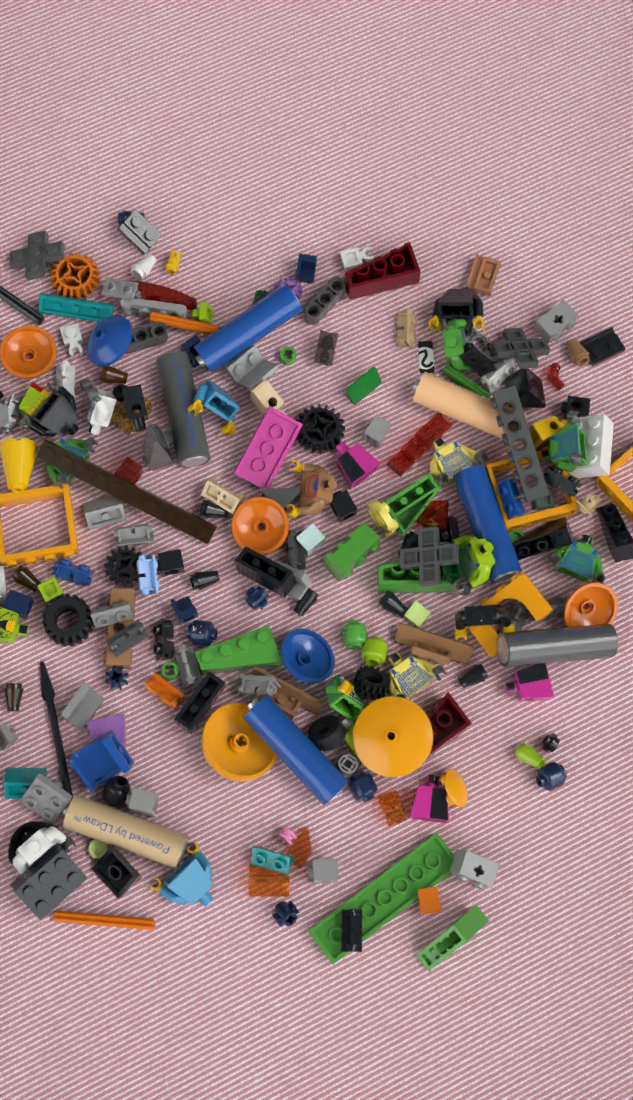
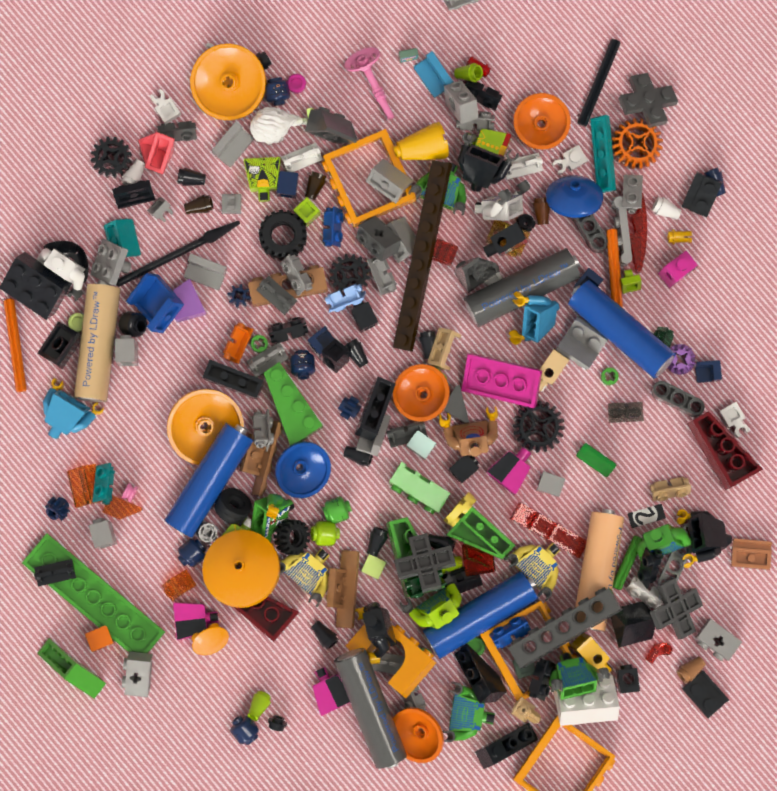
camera: 80 degrees right, 10 degrees up
(21, 665) = (231, 203): none -> light grey tile
(44, 503) = (389, 180): none -> light grey panel
(98, 528) = (378, 238): none -> dark grey brick
(202, 264) = (678, 269): none -> dark pink torso
(202, 597) = (335, 355): none -> black brick

